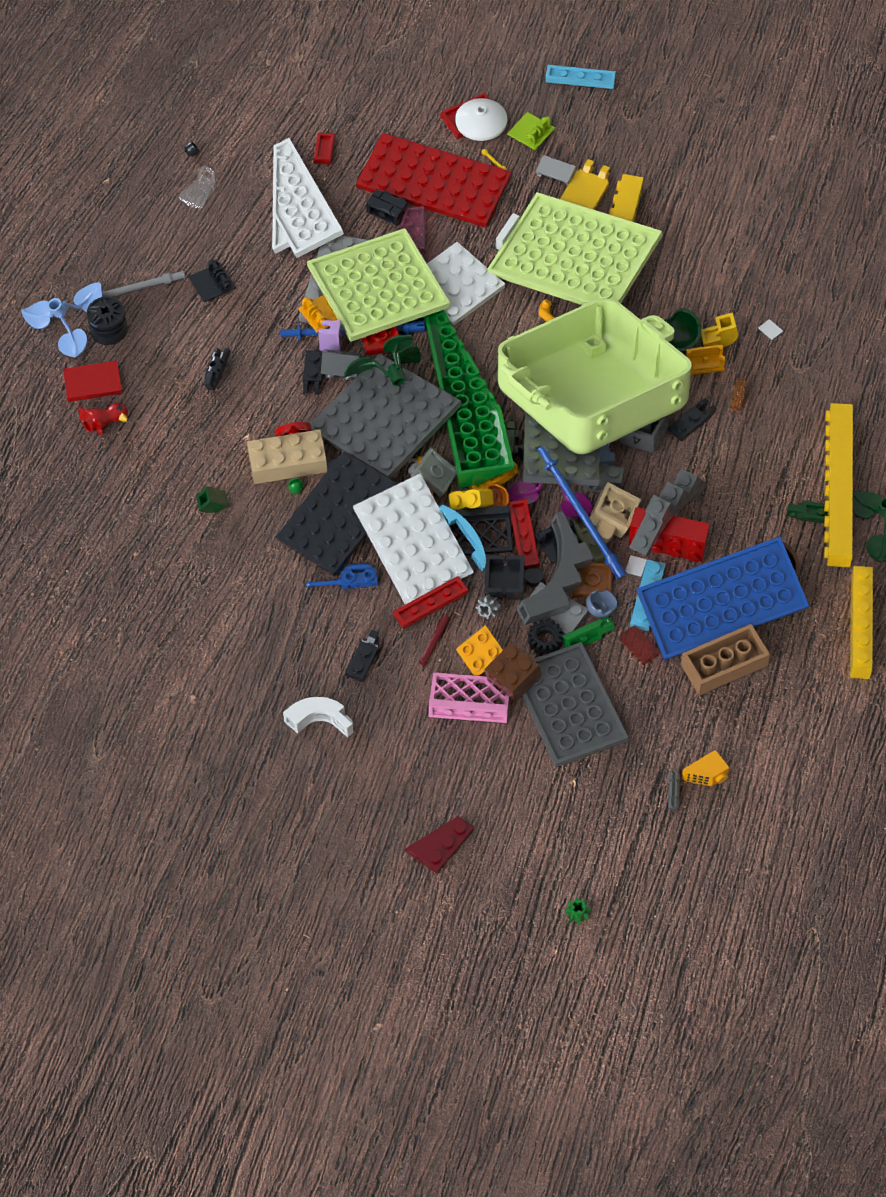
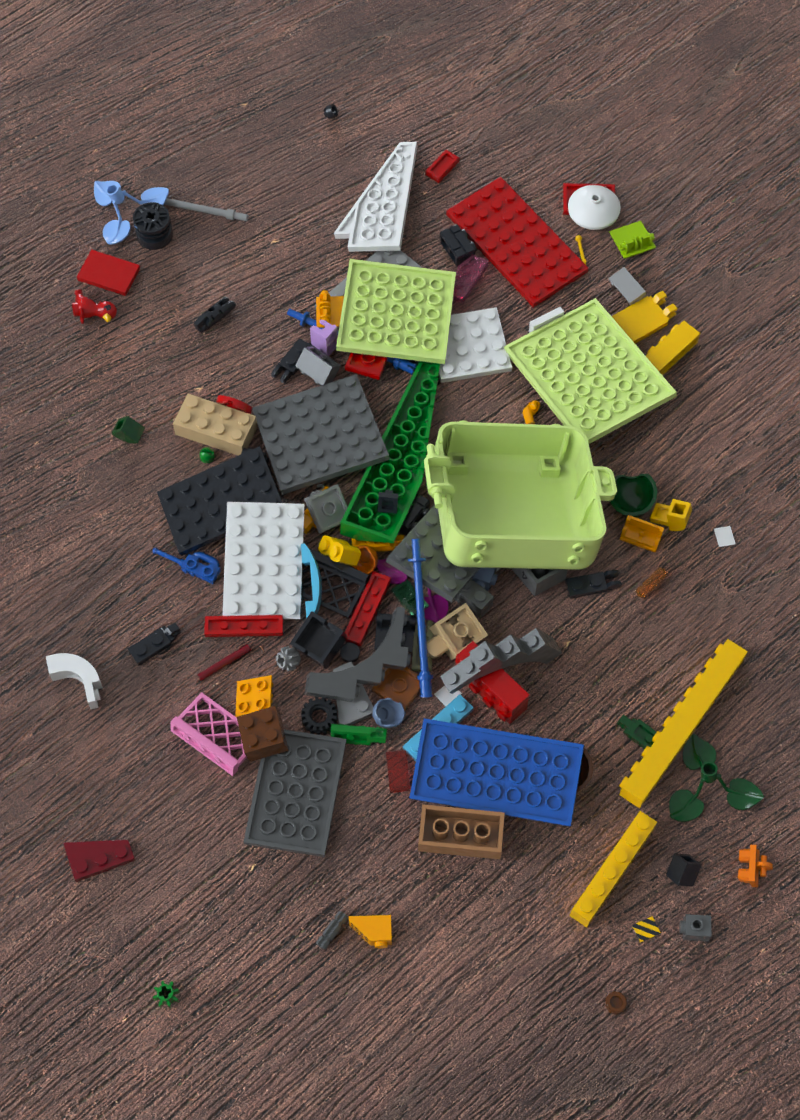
camera: 30 degrees right, 5 degrees up
(198, 192) = (310, 151): clear piece -> none
(212, 281) = (265, 236): black hinge -> none
(395, 372) = (351, 398): dark green plant -> none
(488, 436) = (388, 502): none -> black tile
(548, 507) = (406, 596): none -> clear green slope
(580, 76) = (710, 212): medium azure plate -> none

